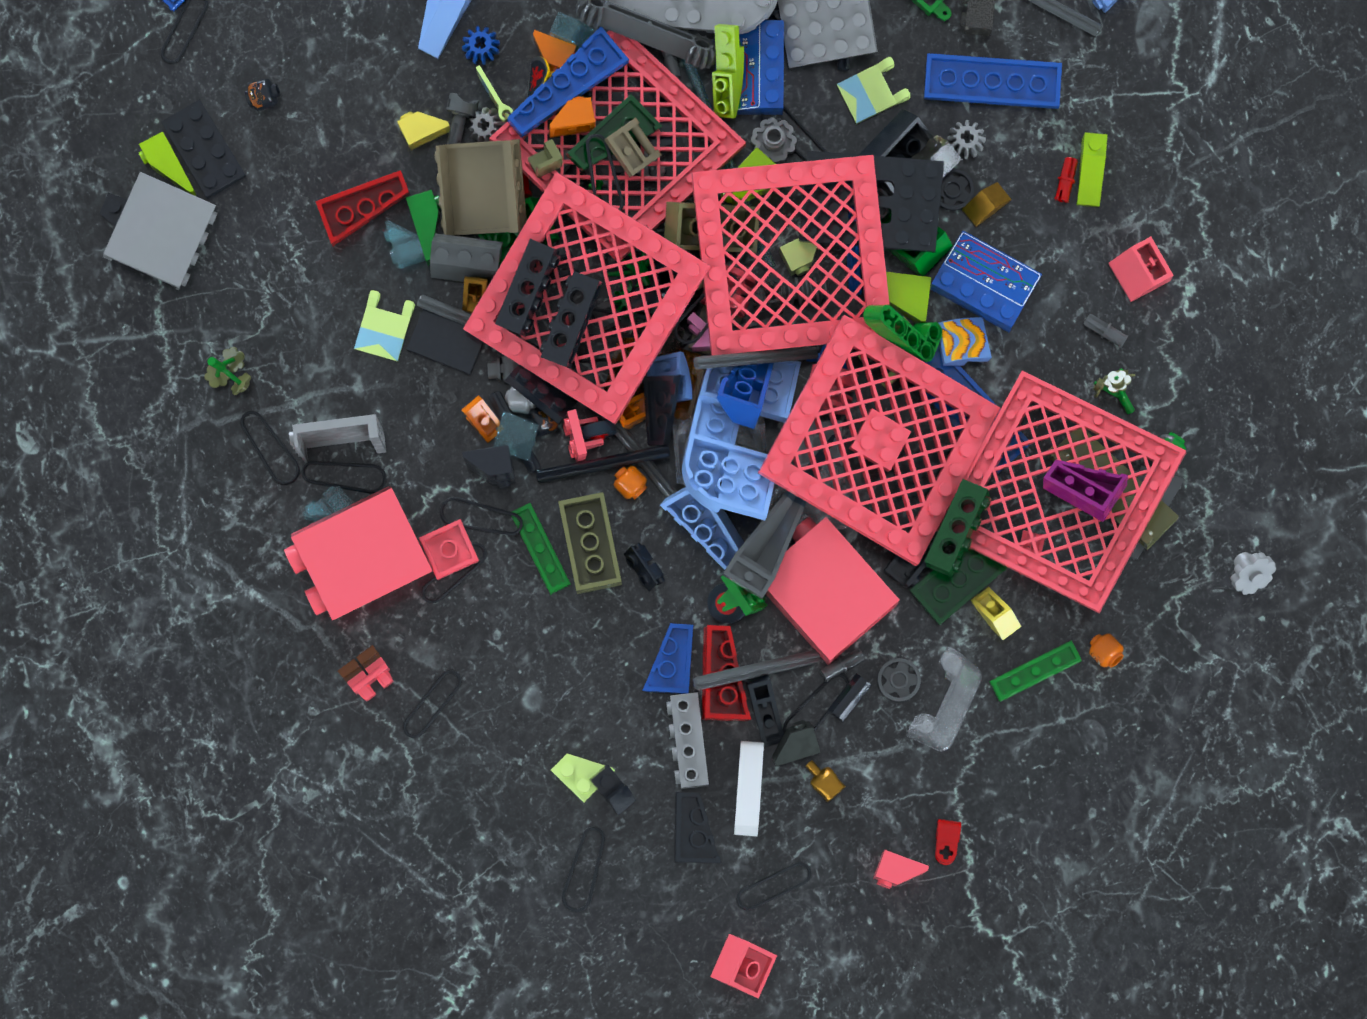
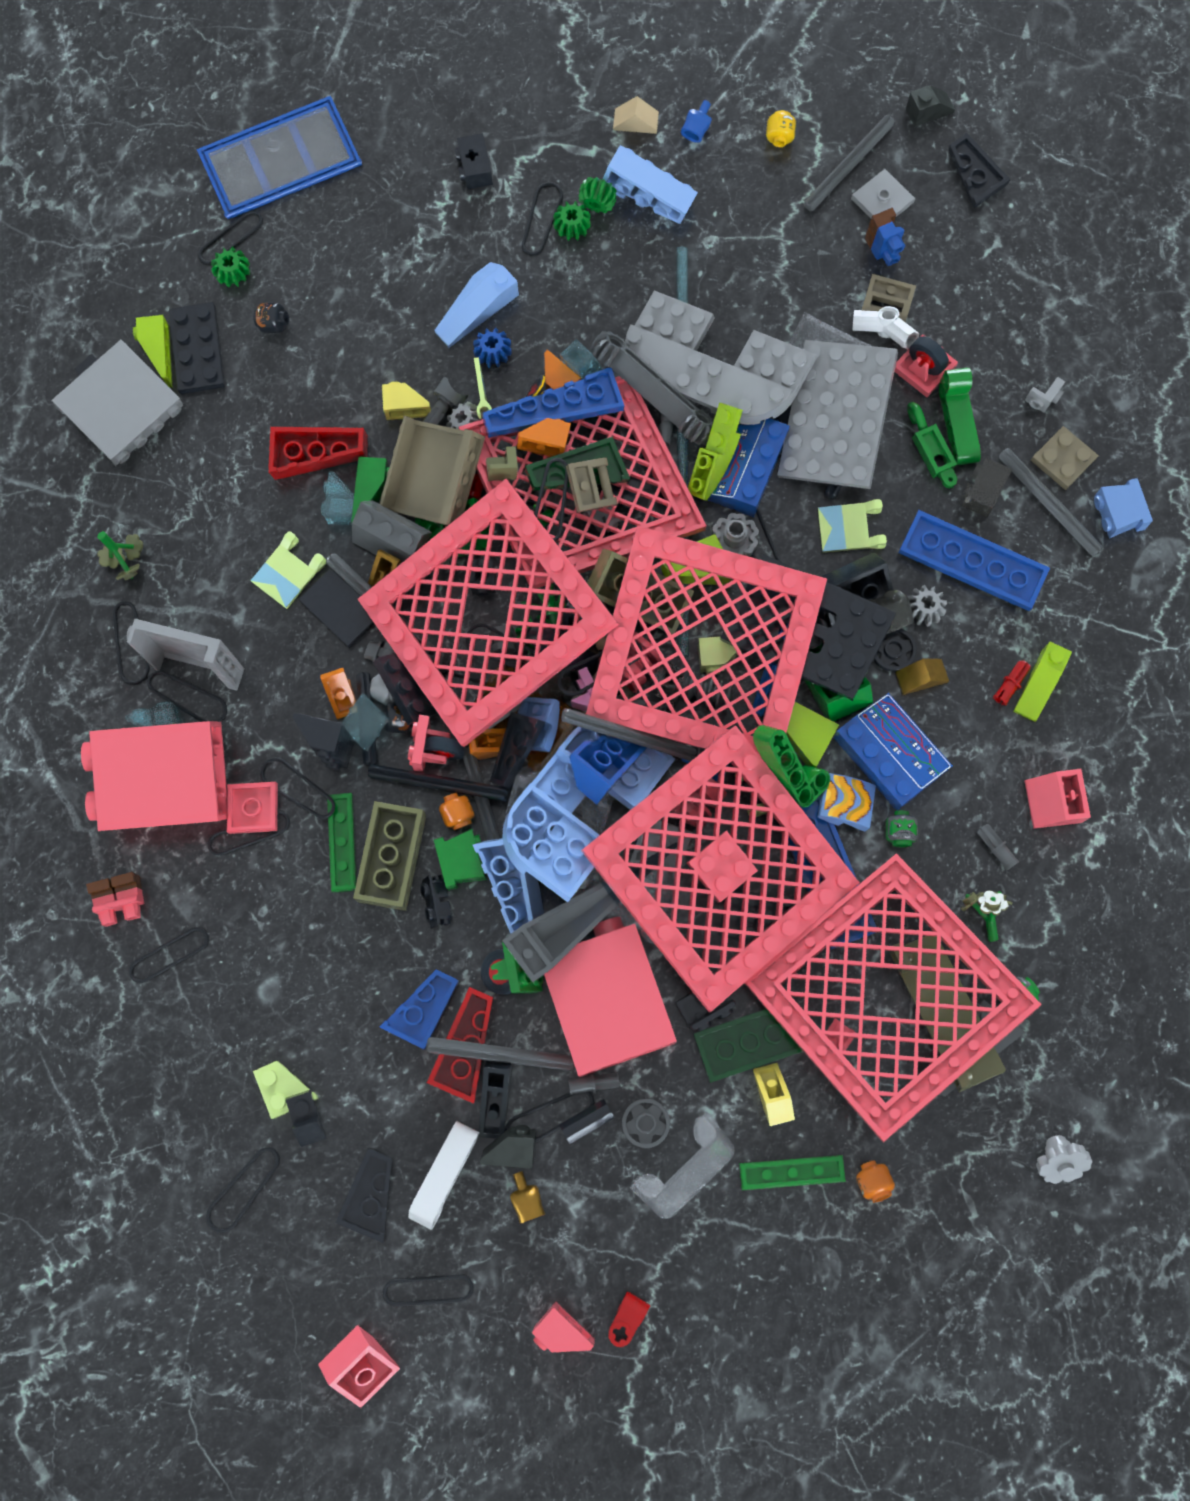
camera: 25 degrees right, 5 degrees down
(196, 52) = (230, 267): none -> green gear
(516, 294) = (419, 580): black brick -> none
(591, 289) = (460, 638): black brick -> none
(651, 522) = (459, 859): none -> green hips
(689, 740) = (403, 1100): light grey brick -> none
(966, 494) = (789, 957): dark green brick -> none
(1019, 347) = (901, 829): none -> head
(1084, 487) = (918, 1002): magenta wedge -> none

